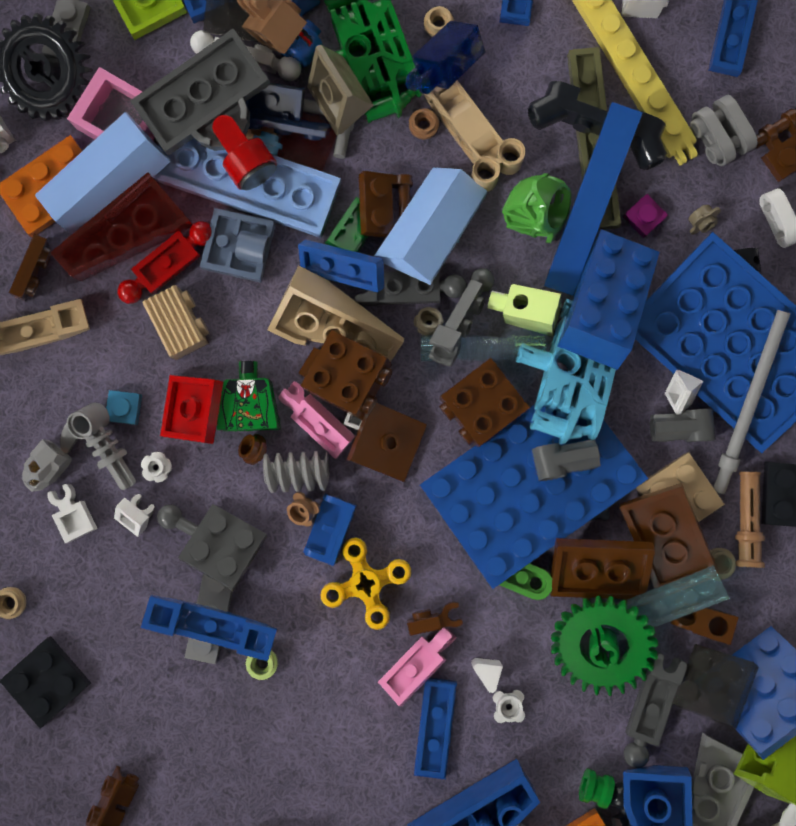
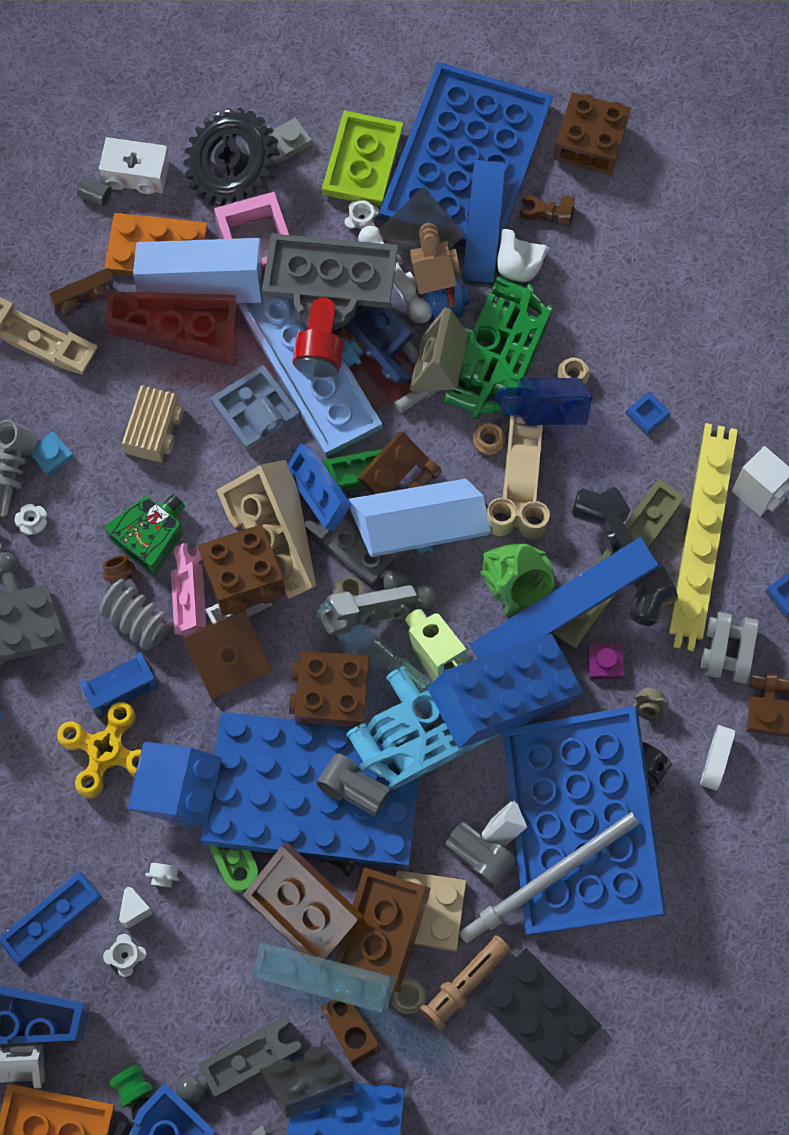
camera: 35 degrees right, 15 degrees down
(164, 263) = (186, 373): red plate -> none
(176, 24) = (361, 208): none -> white plate
(191, 409) = (100, 497): red plate -> none
(302, 510) = (110, 649): medium nougat plate -> none
(416, 666) = (83, 852): bright pink plate -> none
(425, 622) = (123, 823): reddish brown plate -> none
(439, 566) = (174, 784): none -> blue slope
(484, 631) = (163, 875): none -> white plate
(602, 669) = (220, 968): green gear -> none

